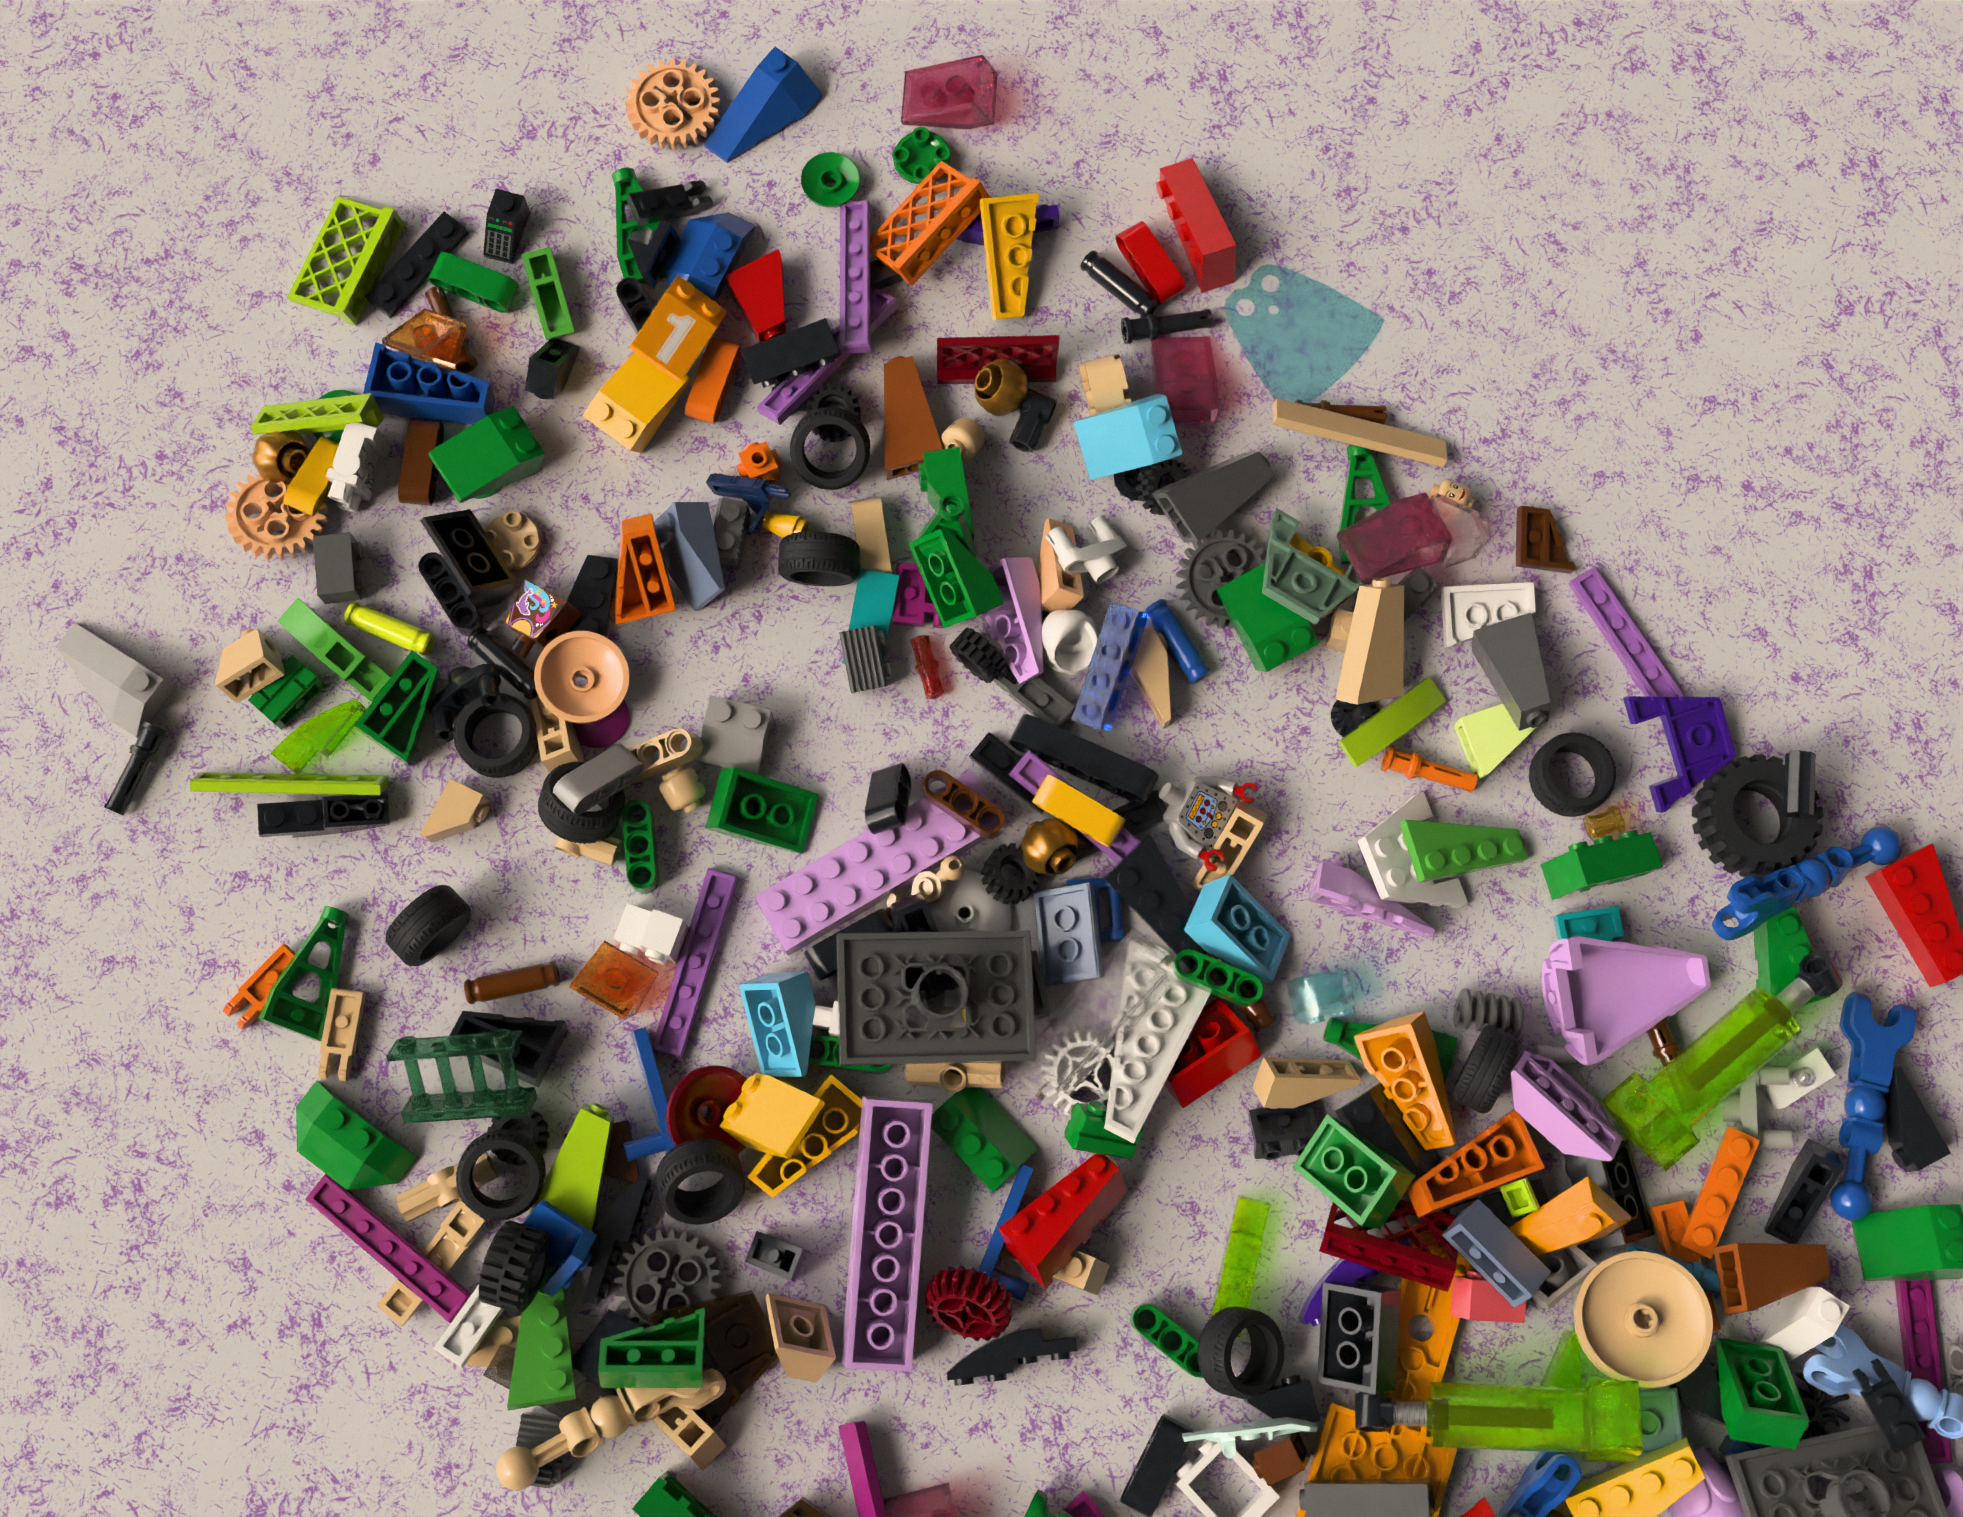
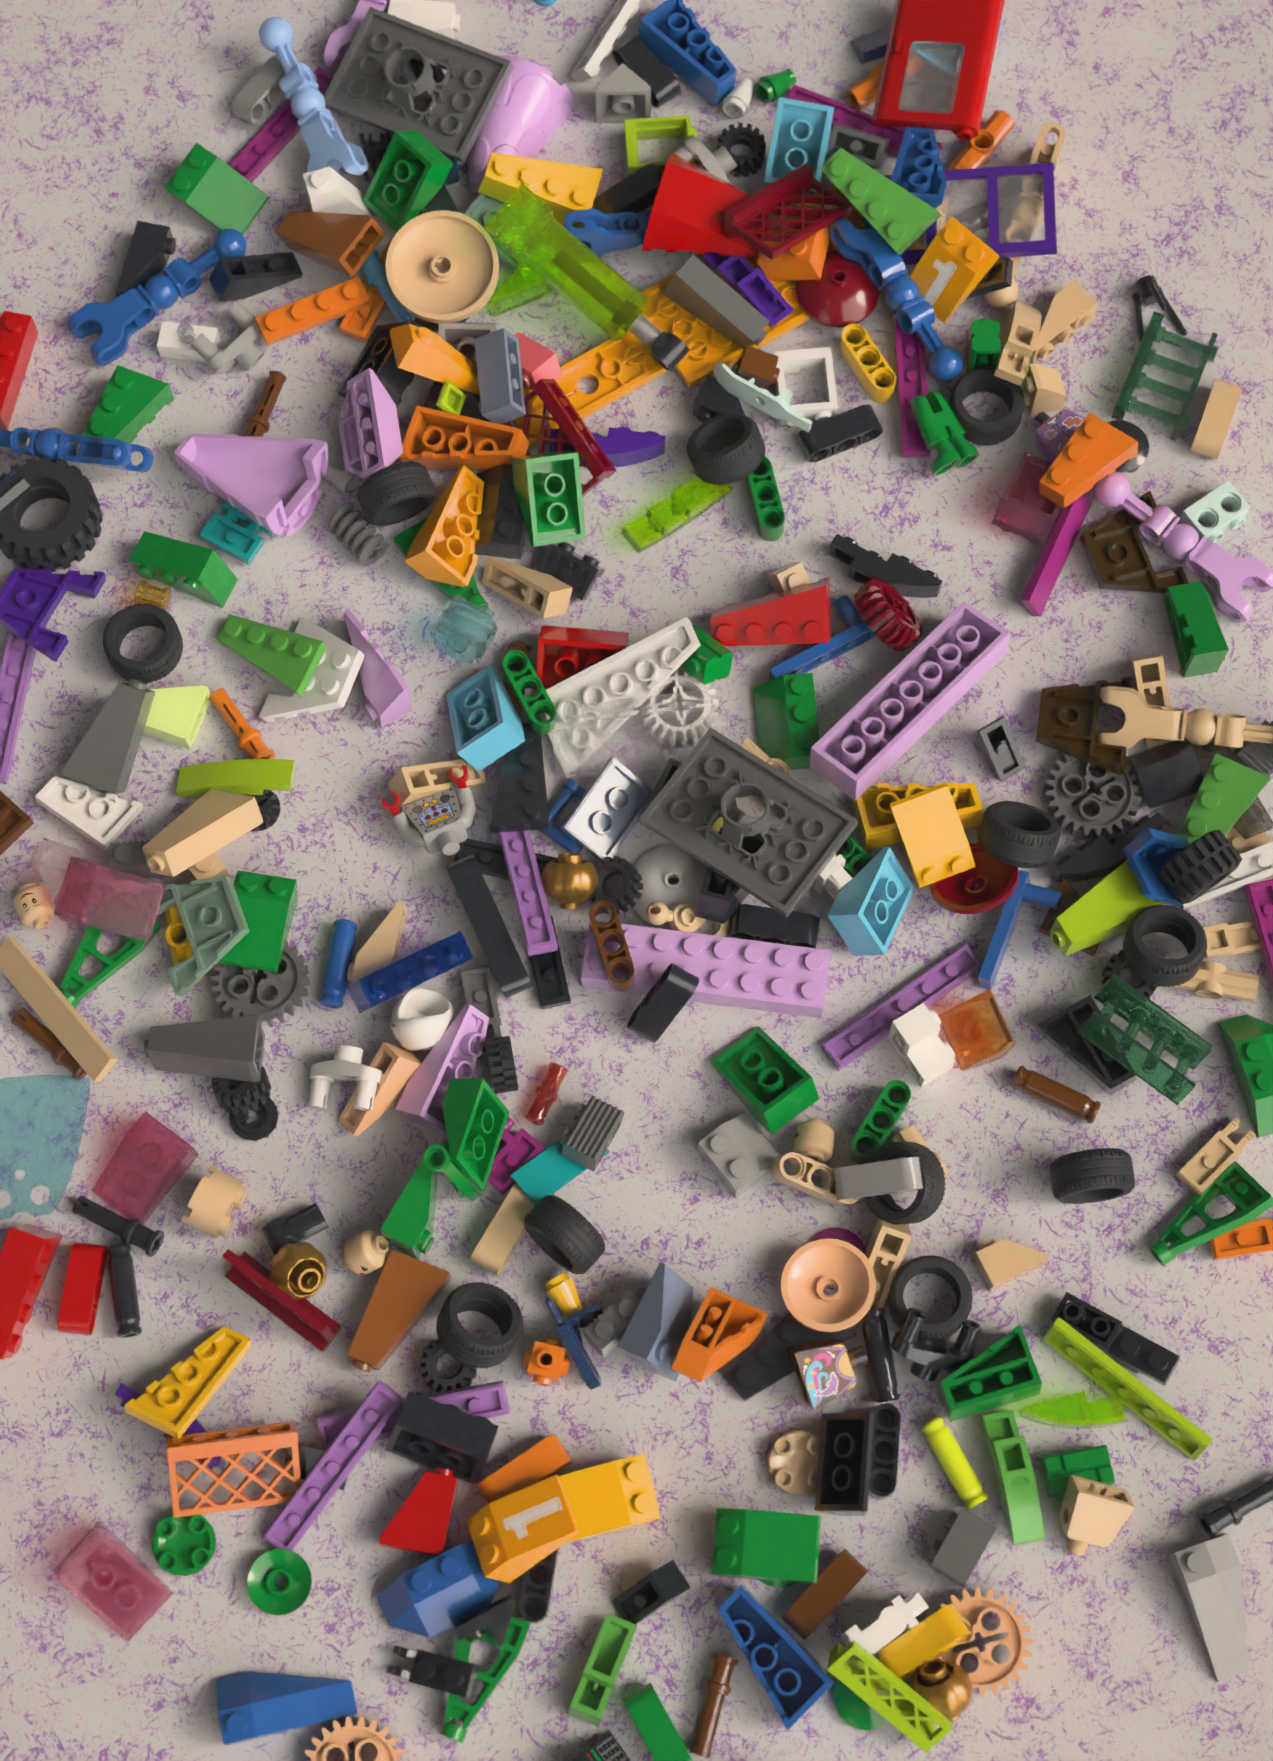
camera: 135 degrees left, 5 degrees down
(429, 338) = (739, 1698): clear orange slope -> none
(656, 1356) = (1136, 728): green wedge -> none
(801, 1336) = (1022, 683): tan slope -> none
(1078, 811) = (529, 878): yellow beam -> none
(1128, 437) = (235, 1140): medium azure slope -> none
(1359, 1337) = (637, 399): black slope -> none
(1664, 1109) = (240, 376): clear neon green piece -> none
(1889, 1408) = (334, 108): black hinge -> none

